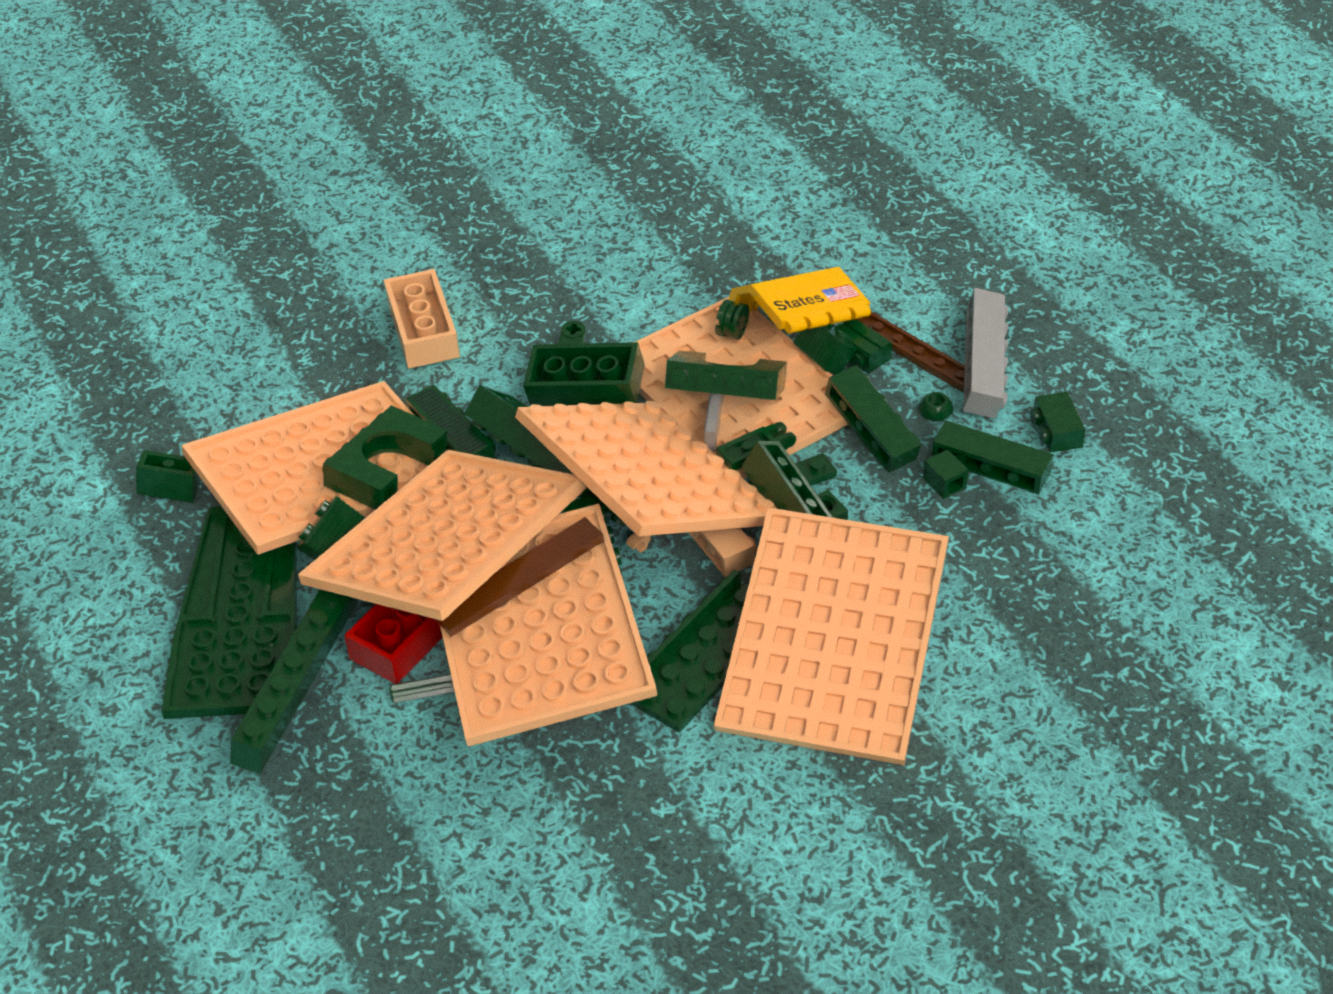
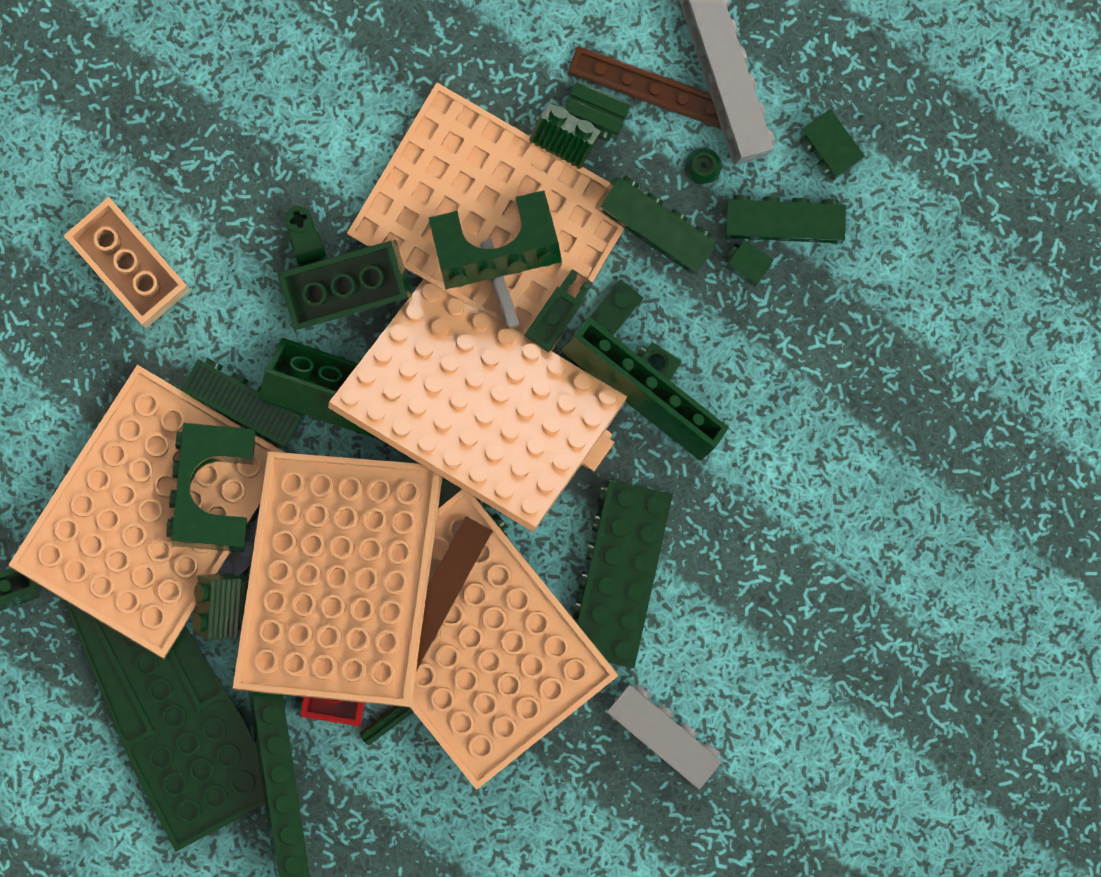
camera: 30 degrees left, 40 degrees up
(678, 790) = (664, 736): none -> light grey brick
(732, 319) = (455, 145): dark green wheel -> none
(806, 299) = (523, 93): yellow hinge -> none
(833, 636) = (732, 523): light nougat plate -> none

